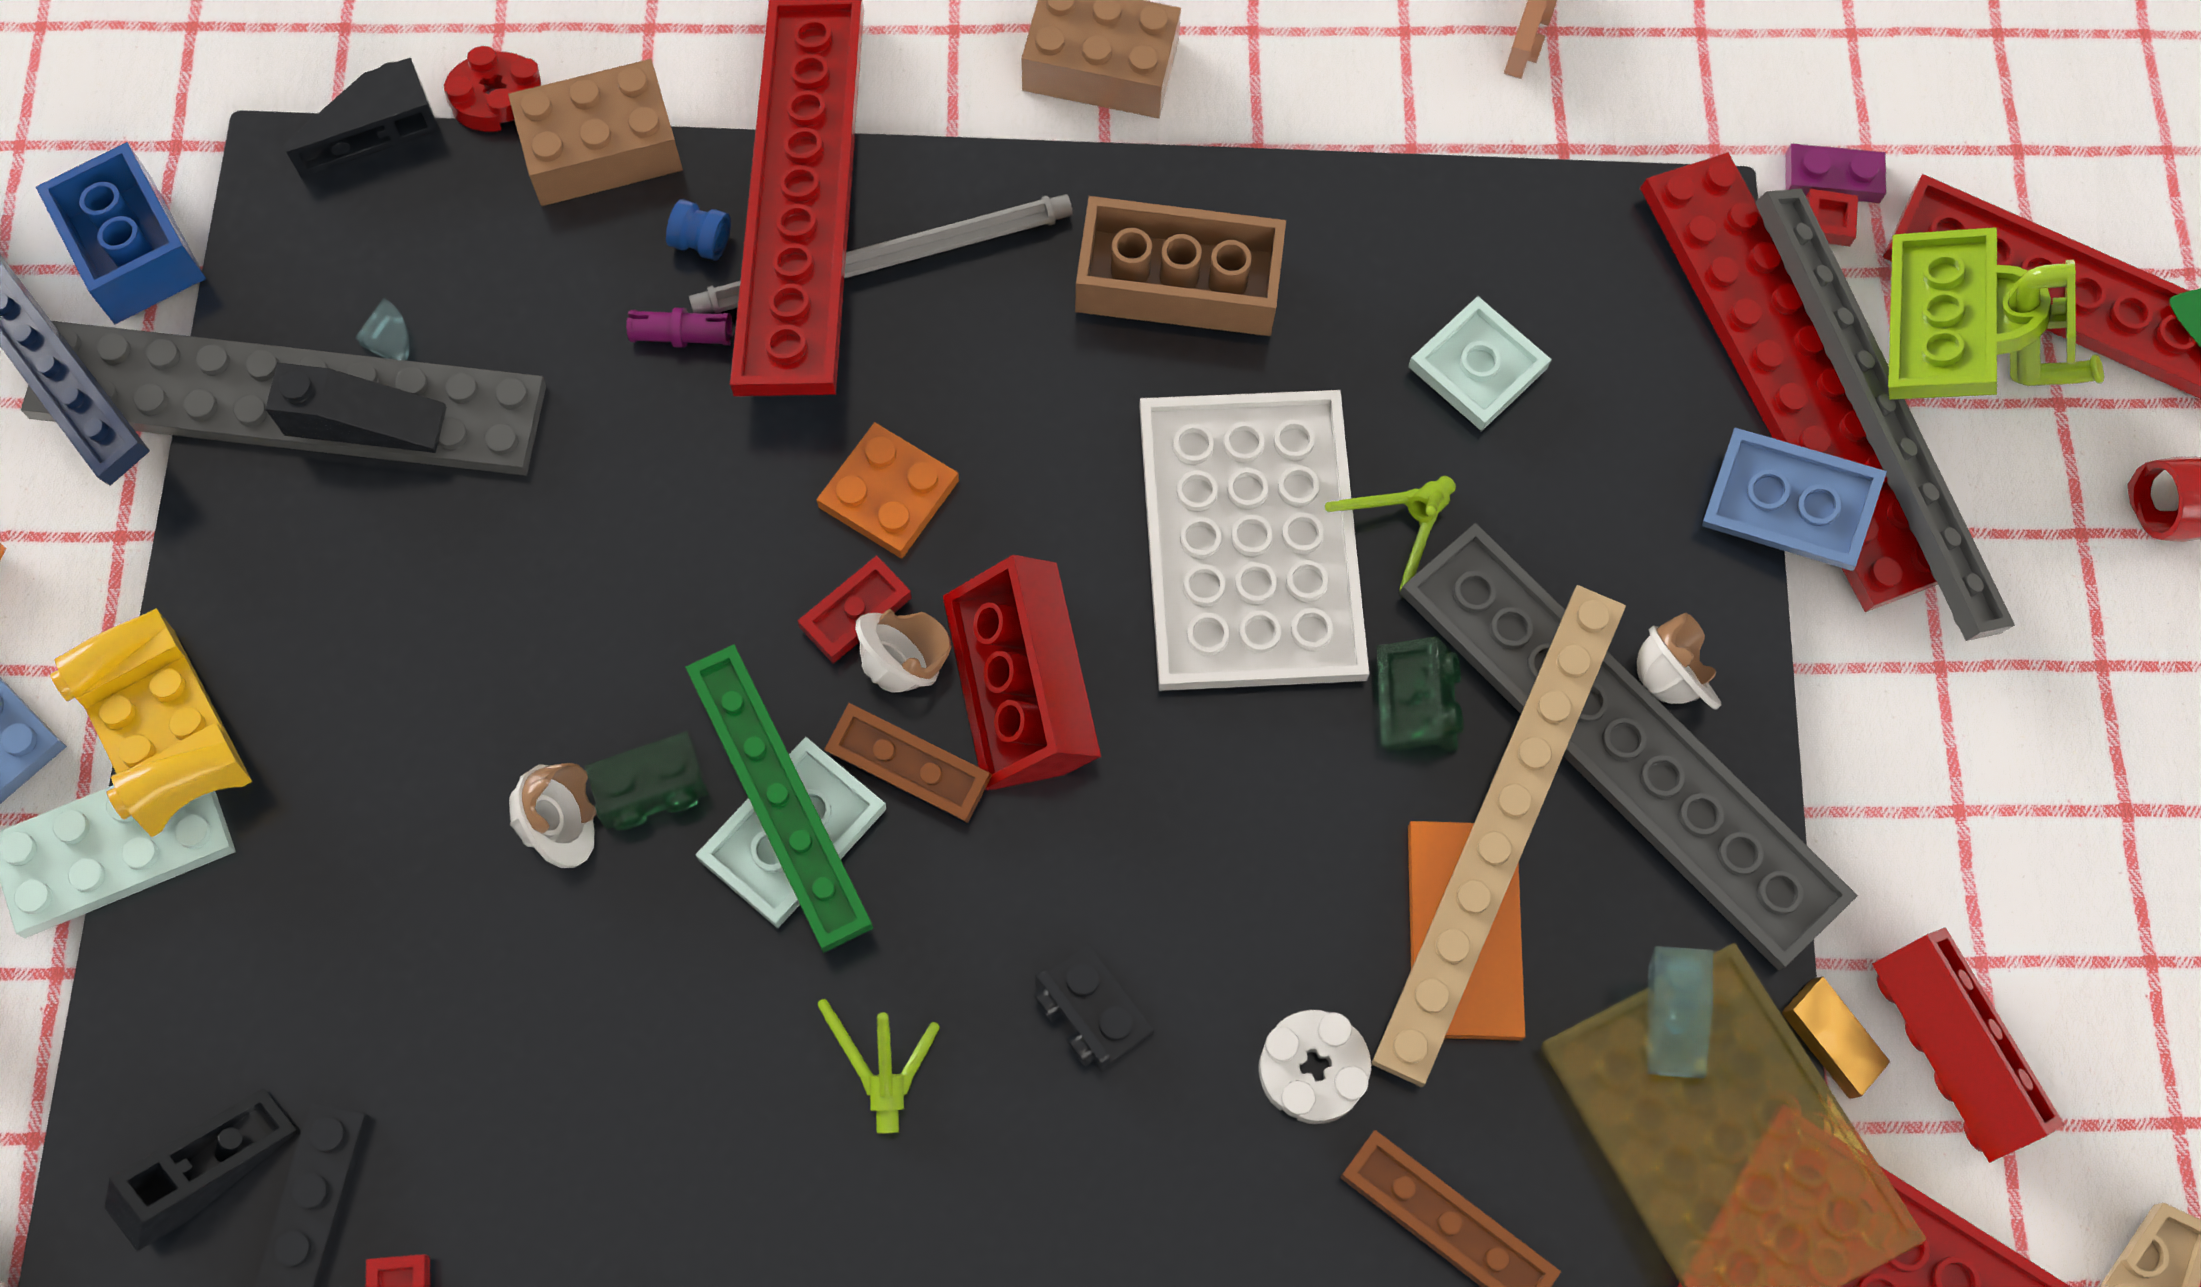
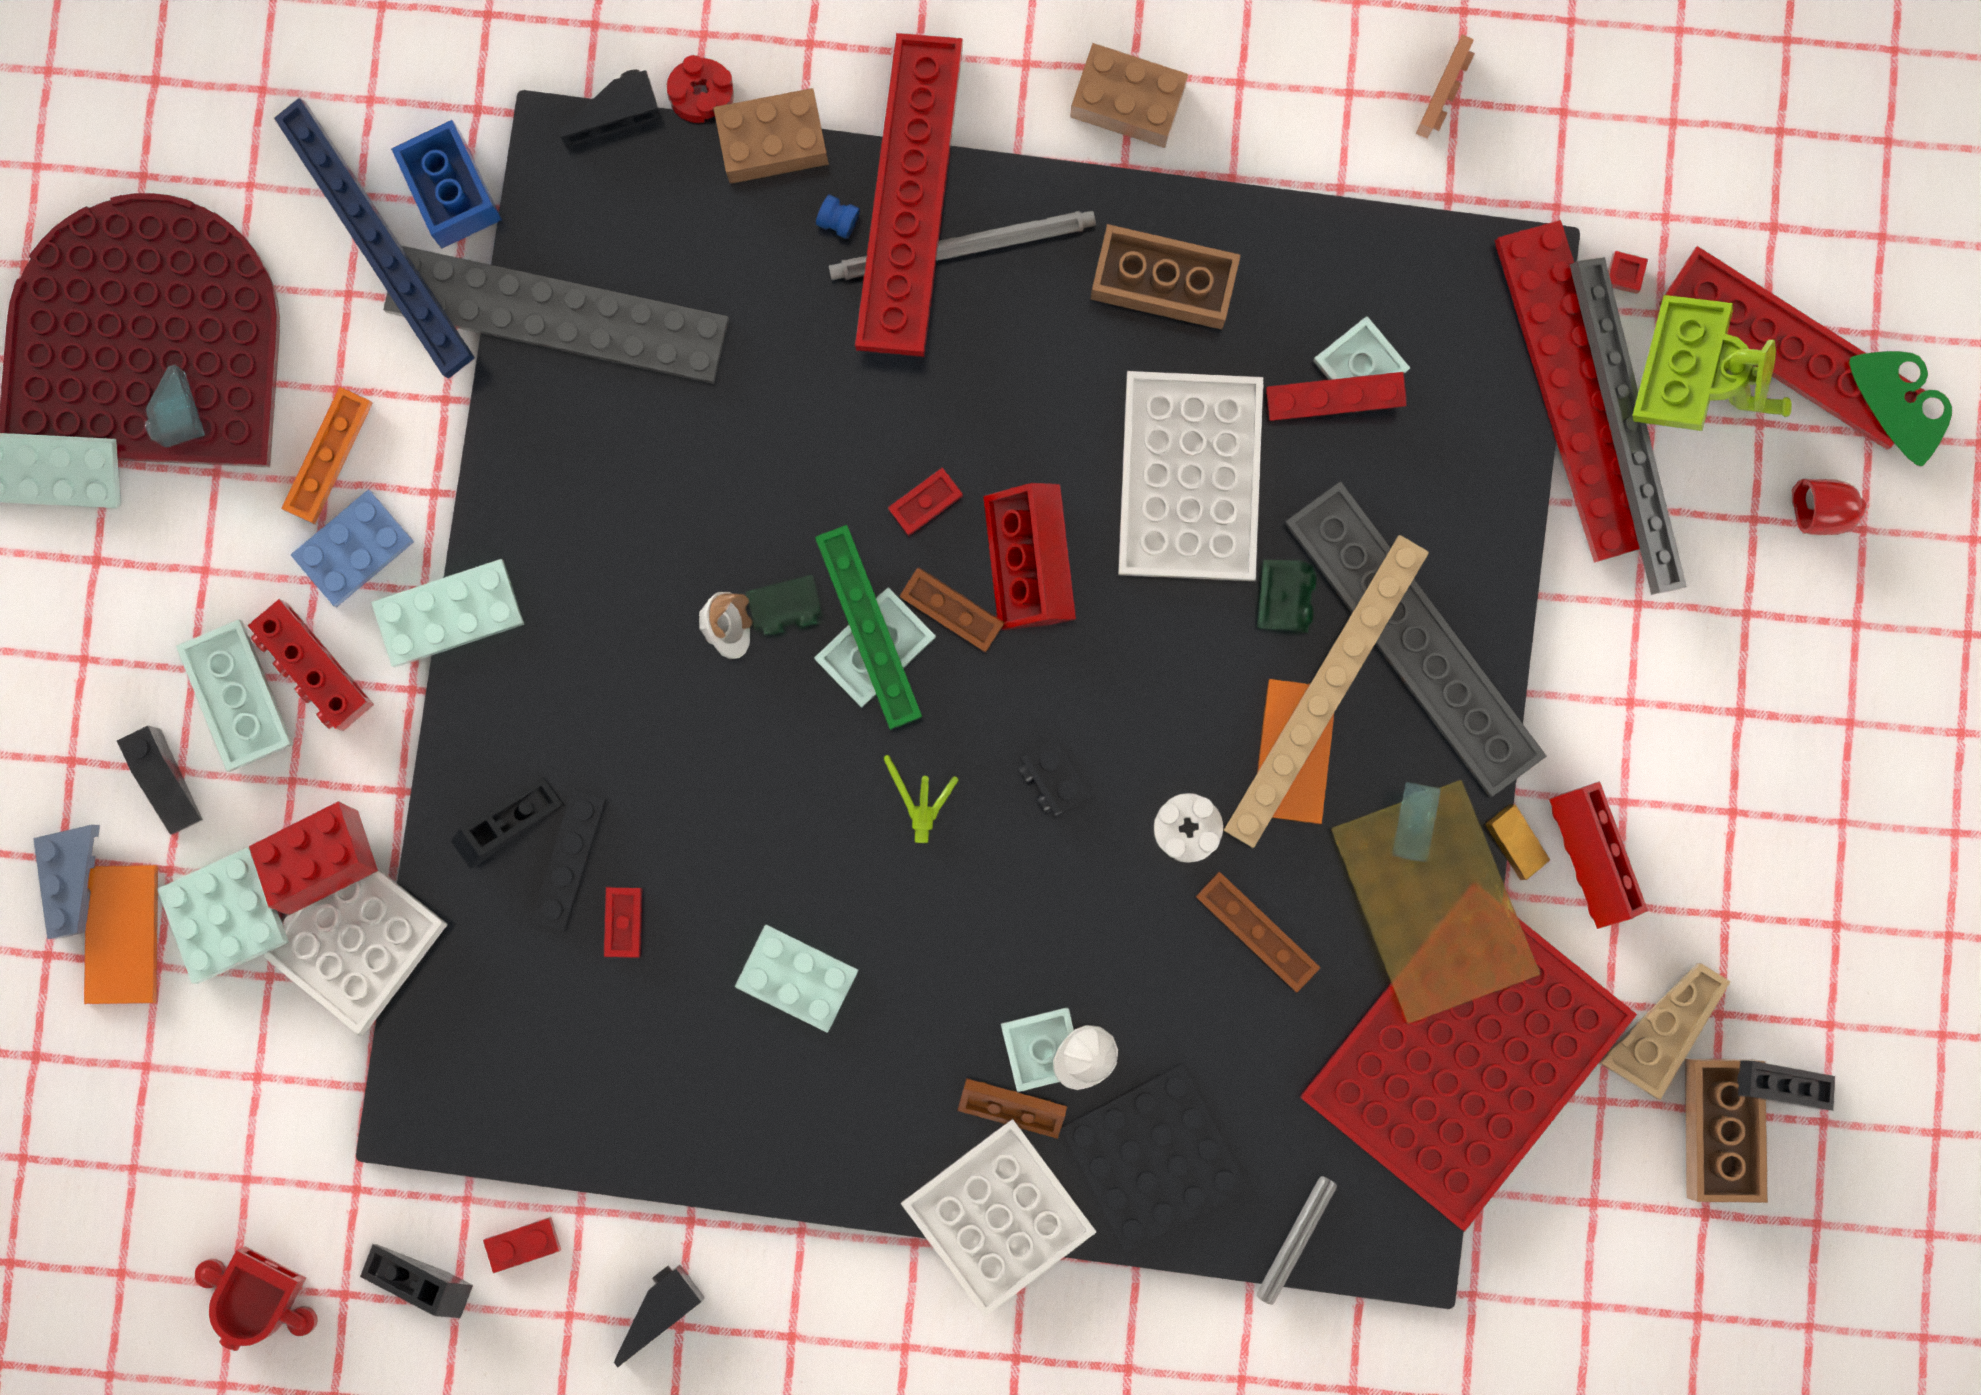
camera: 10 degrees right, 15 degrees up
(150, 719) = (474, 537): yellow piece -> none
(352, 410) = (606, 336): black slope -> none
(386, 333) = (624, 273): clear light blue tile -> none
(679, 327) = (821, 288): magenta pin -> none
(888, 490) = (953, 418): orange plate -> none
(902, 650) = (955, 534): piece -> none
(1422, 504) = (1308, 464): lime plant -> none
(1452, 404) = (1336, 396): none -> red plate
(1672, 666) = (1456, 593): white piece -> none
(1794, 499) = (1556, 485): medium blue plate -> none
(1836, 171) = (1638, 235): magenta plate -> none

